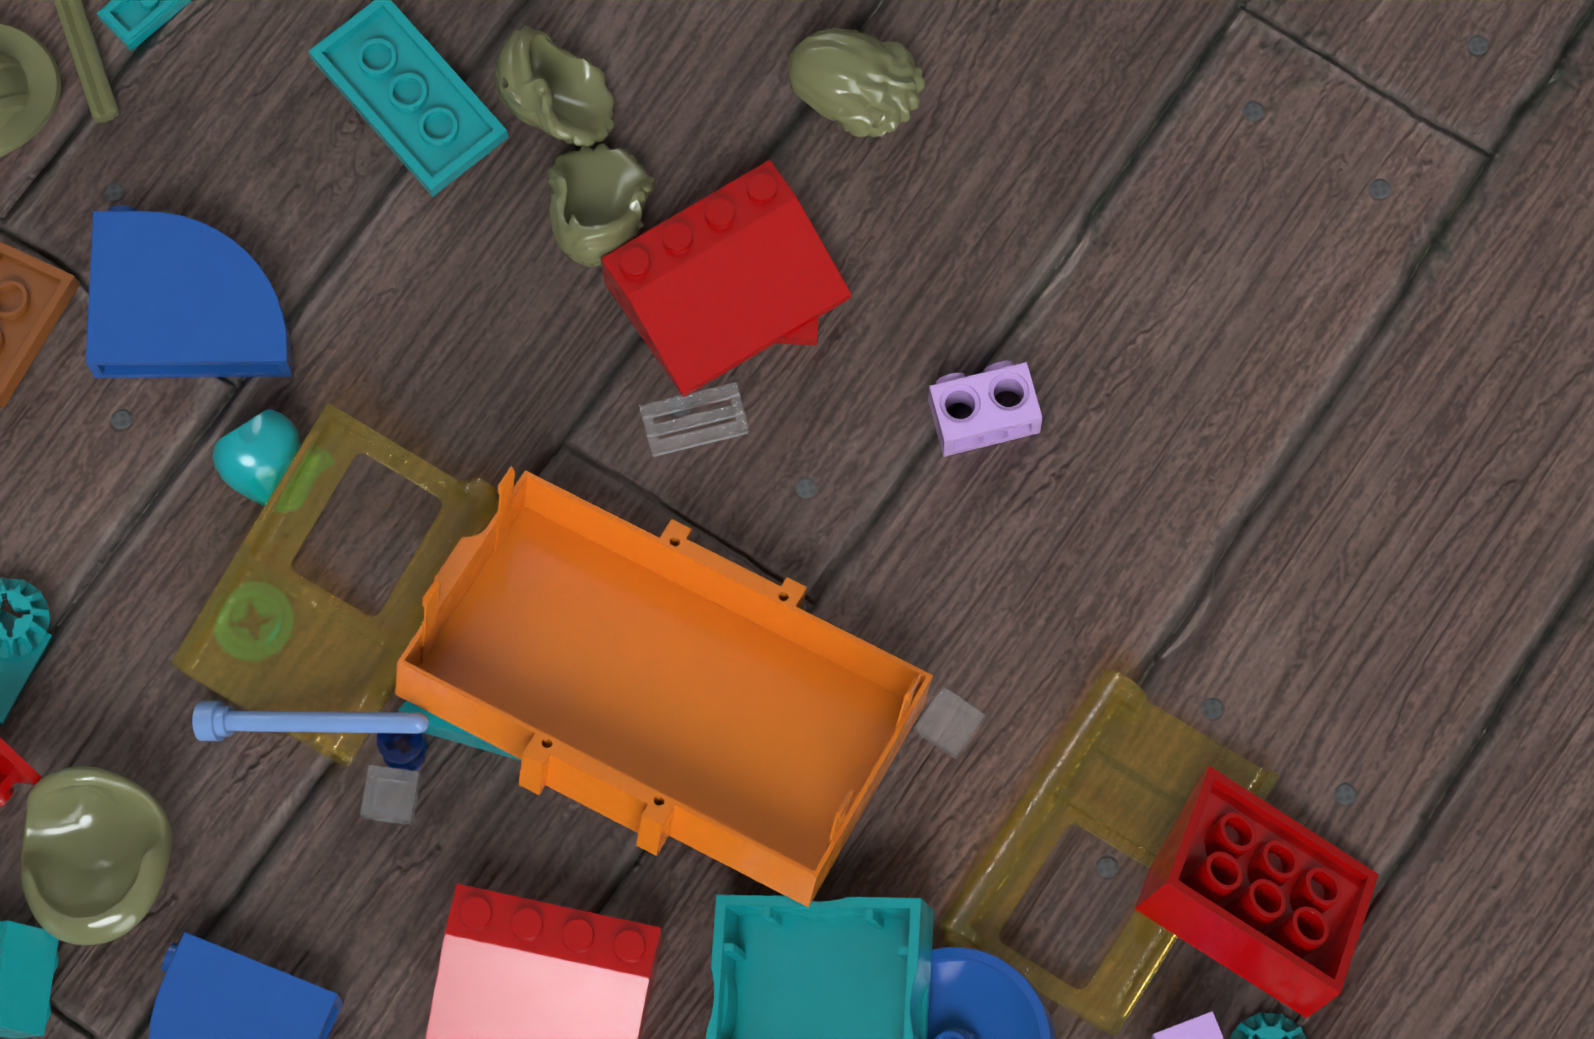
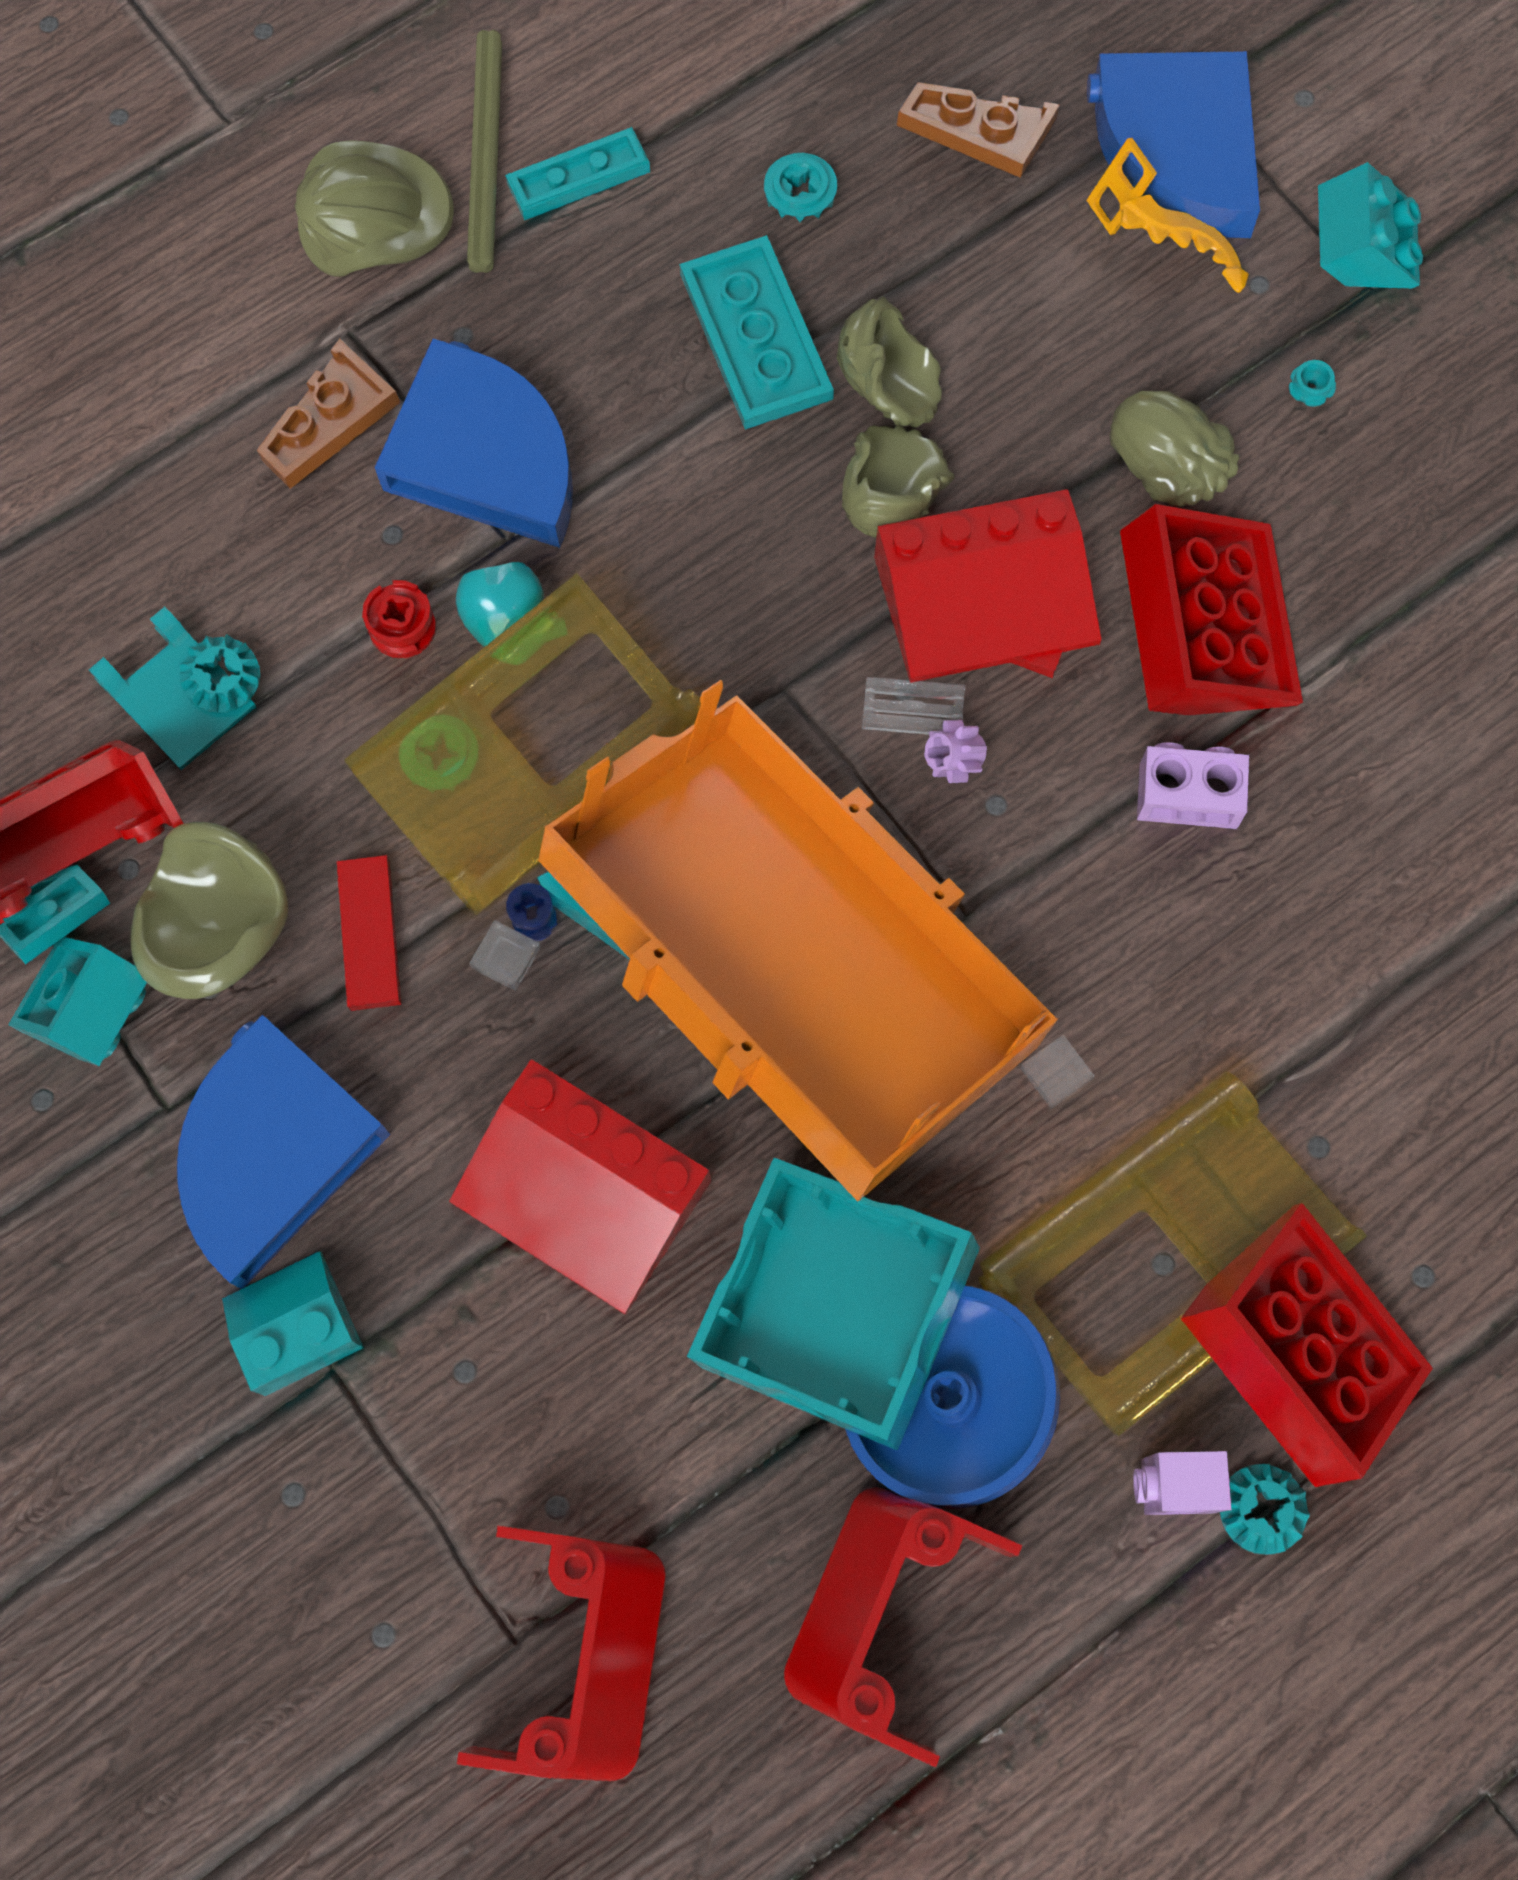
camera: 20 degrees right, 0 degrees up
(163, 503) = (399, 619): none -> red wheel
(215, 721) = (371, 831): medium blue piece -> none
(250, 819) = (368, 933): none -> red tile
(750, 451) = (955, 751): none -> lavender gear
(944, 233) = (1209, 613): none -> red slope

